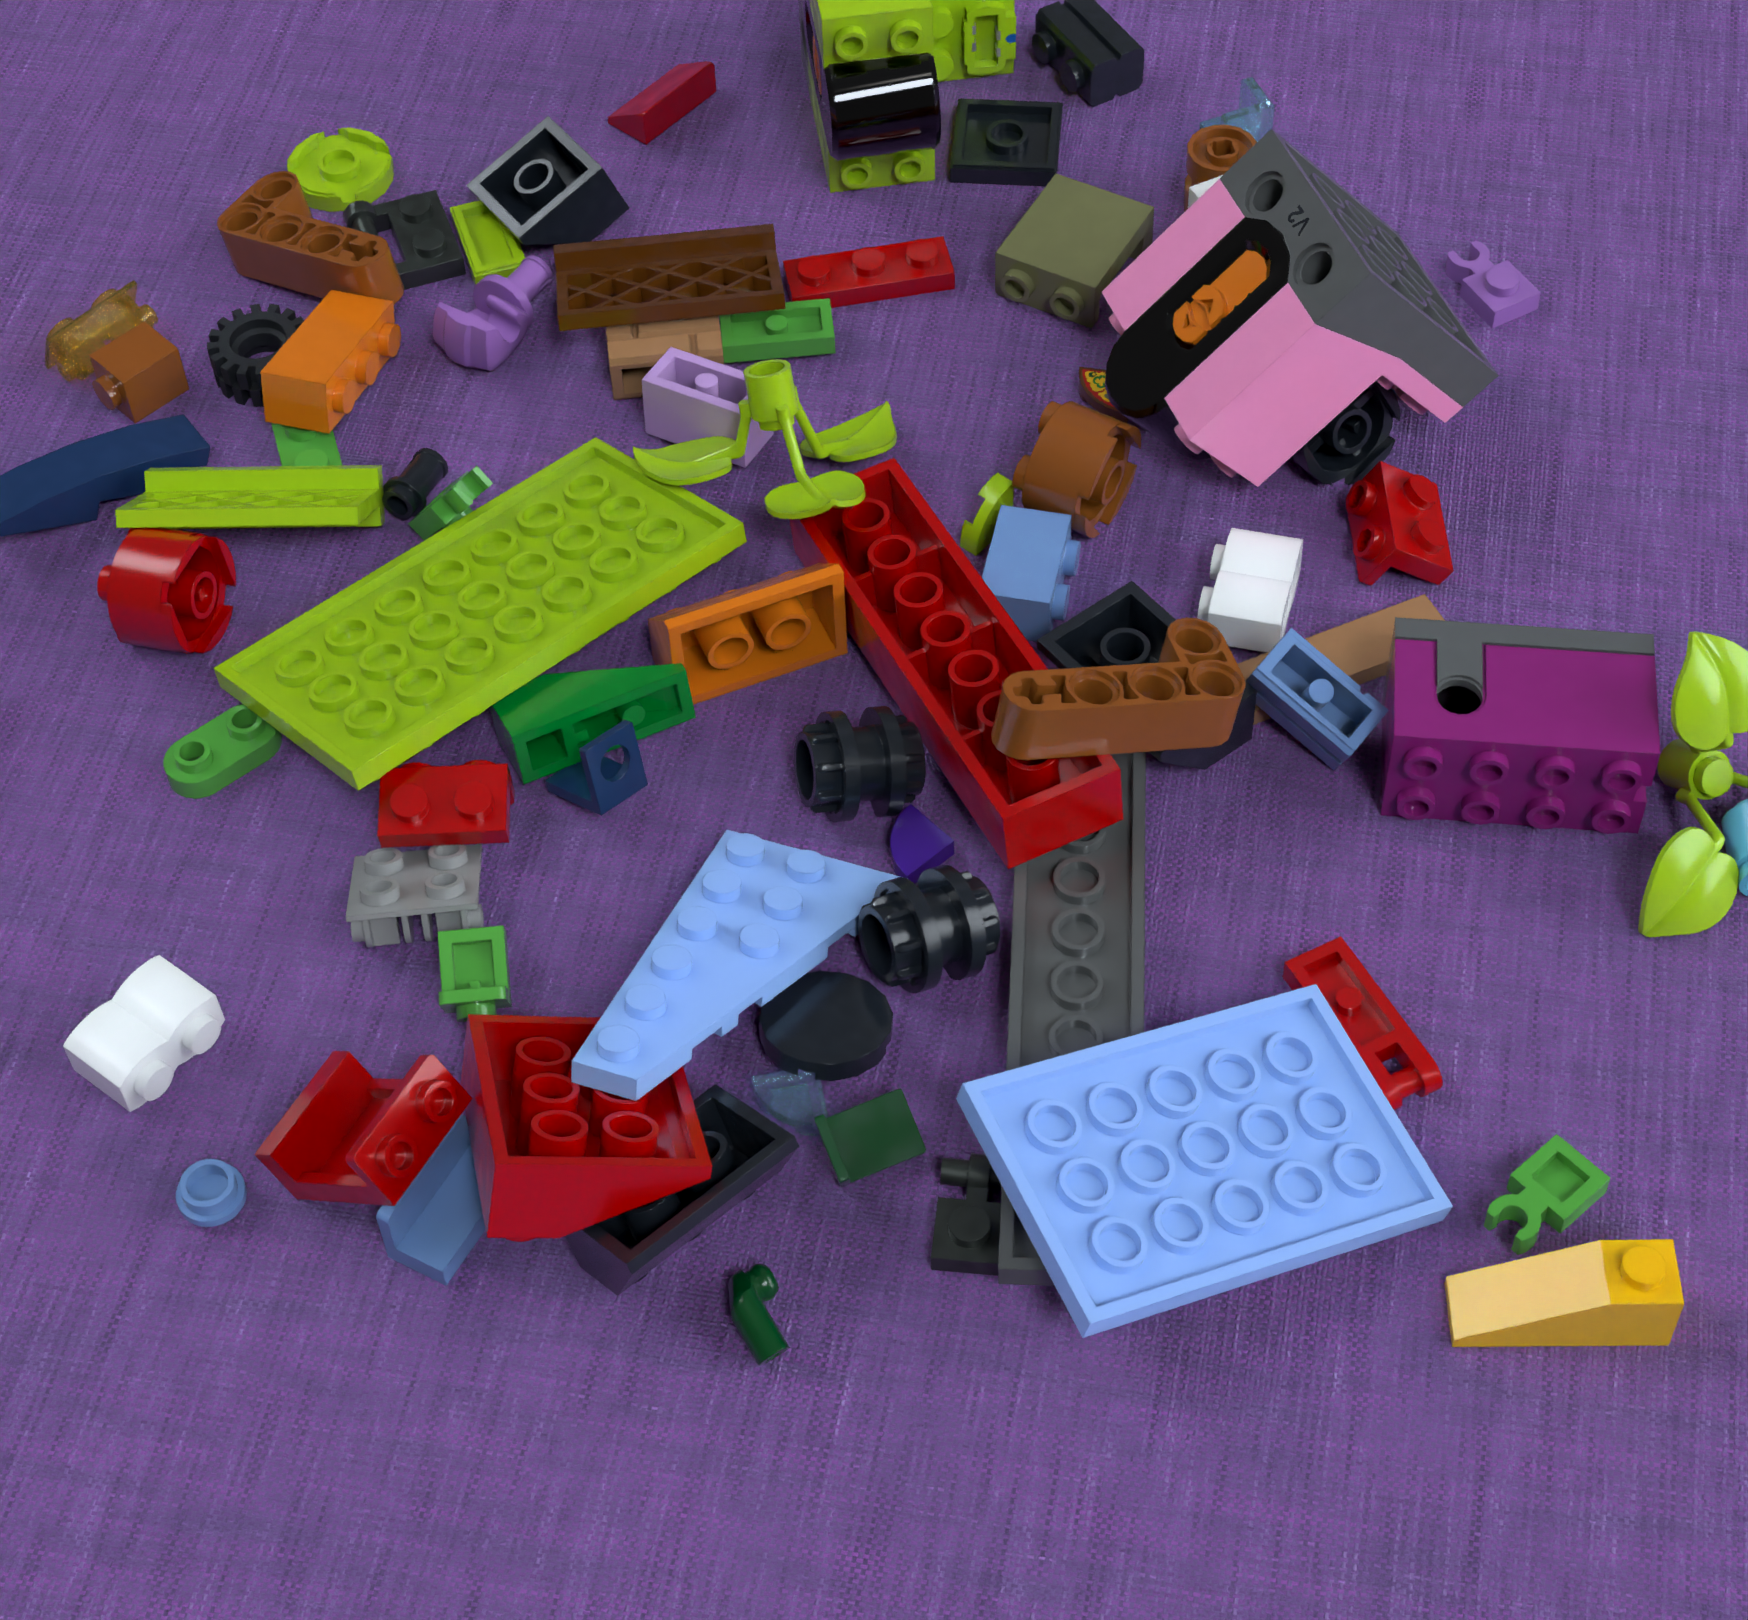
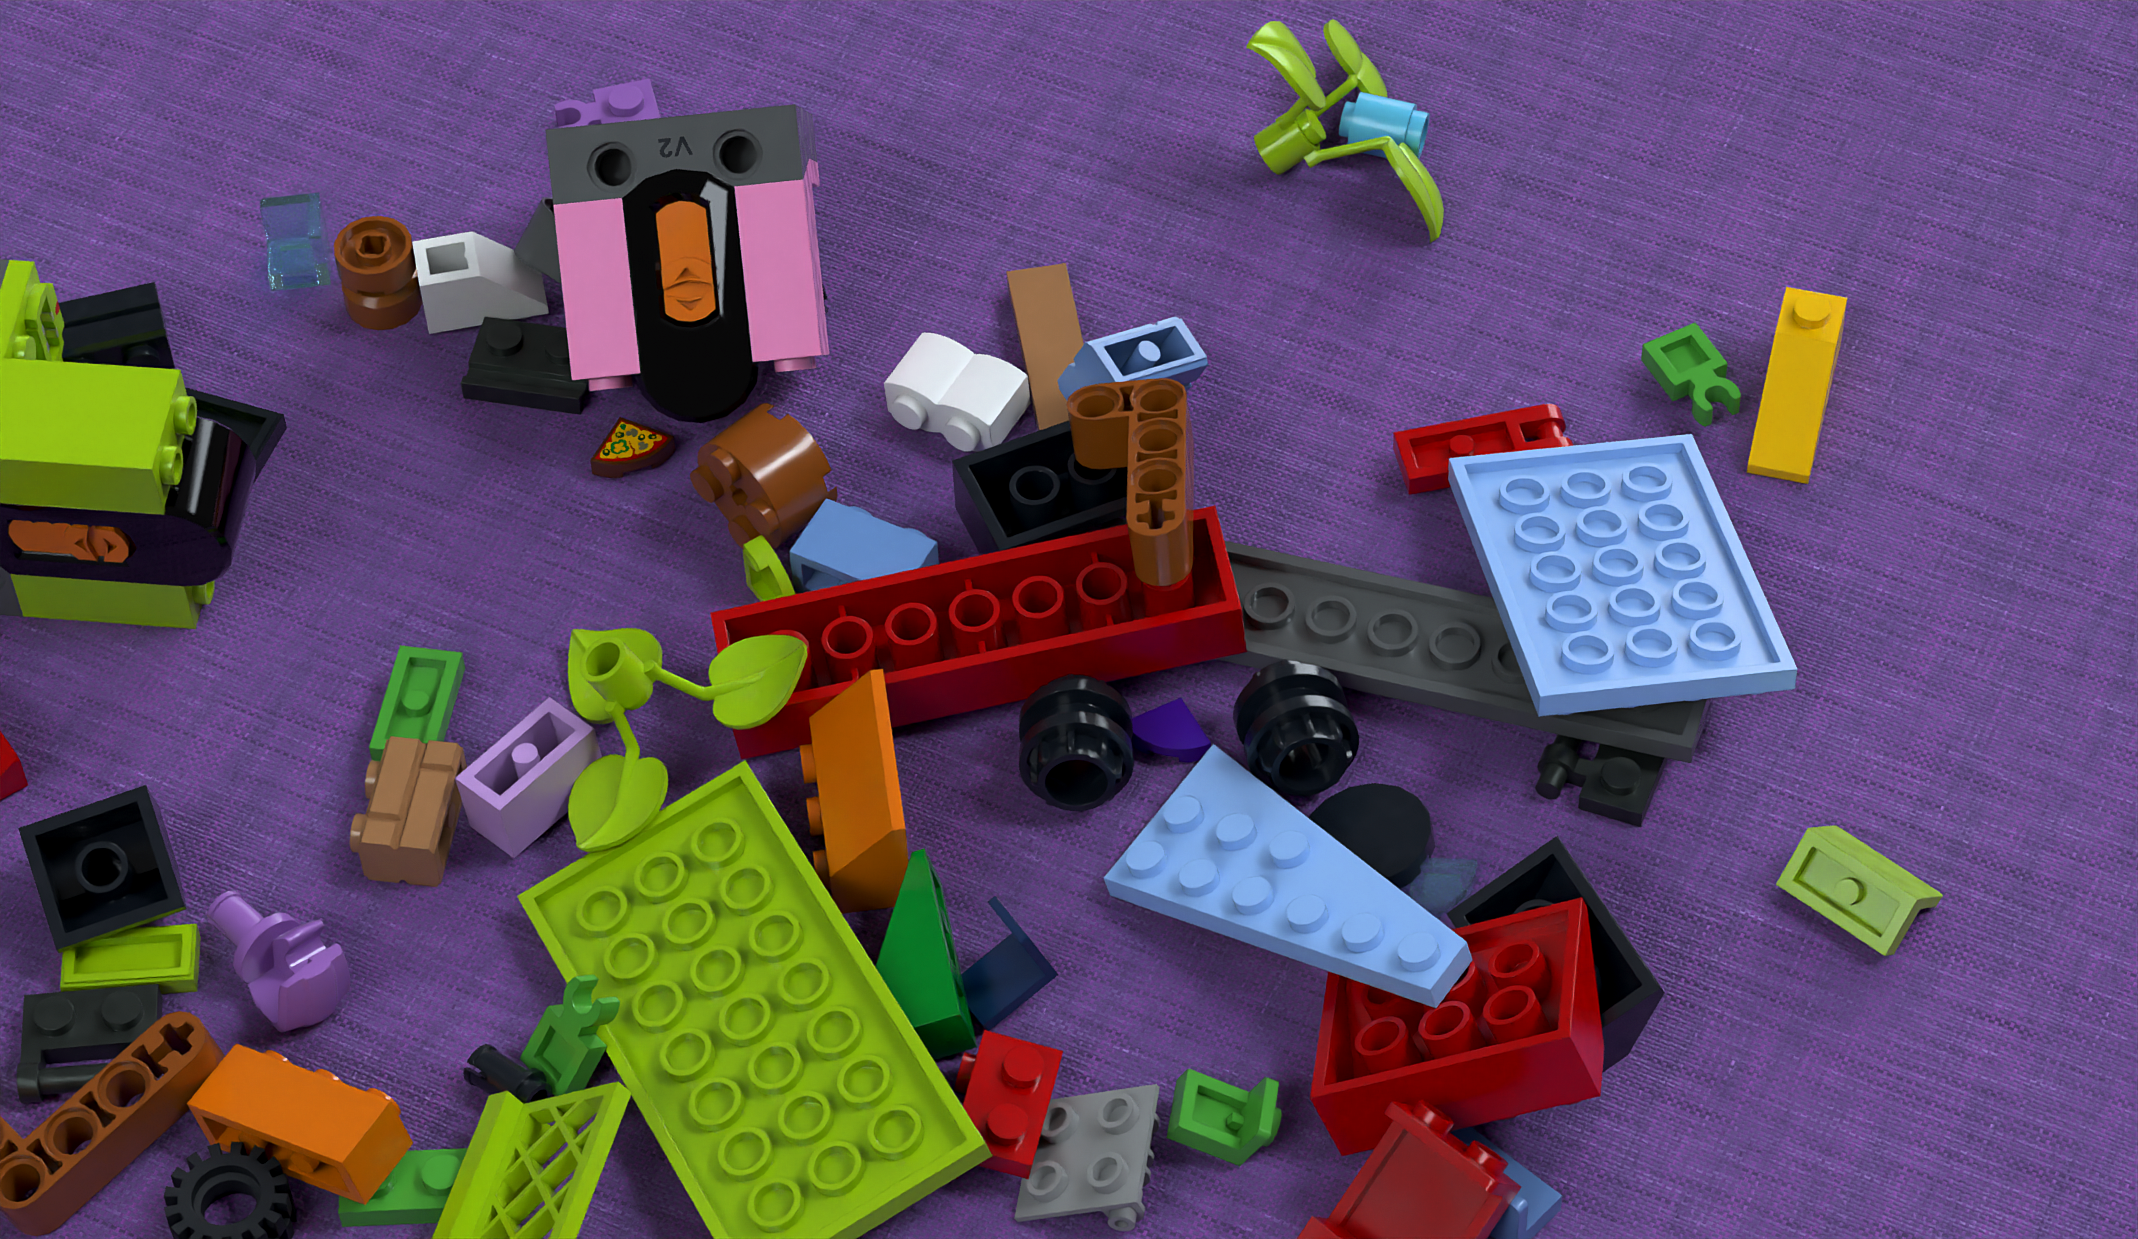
camera: 75 degrees left, 0 degrees up
(671, 274) = (279, 779): reddish brown fence -> none
(750, 1315) = (1676, 956): dark green arm -> none
(870, 1137) = (1506, 828): dark green bracket -> none
(871, 273) = (356, 615): red plate -> none
(898, 1481) = (1856, 887): none -> lime panel
(1071, 248) = (423, 420): olive panel -> none
(1397, 525) = (912, 271): red bracket -> none
(1519, 725) = (1219, 231): magenta piece -> none

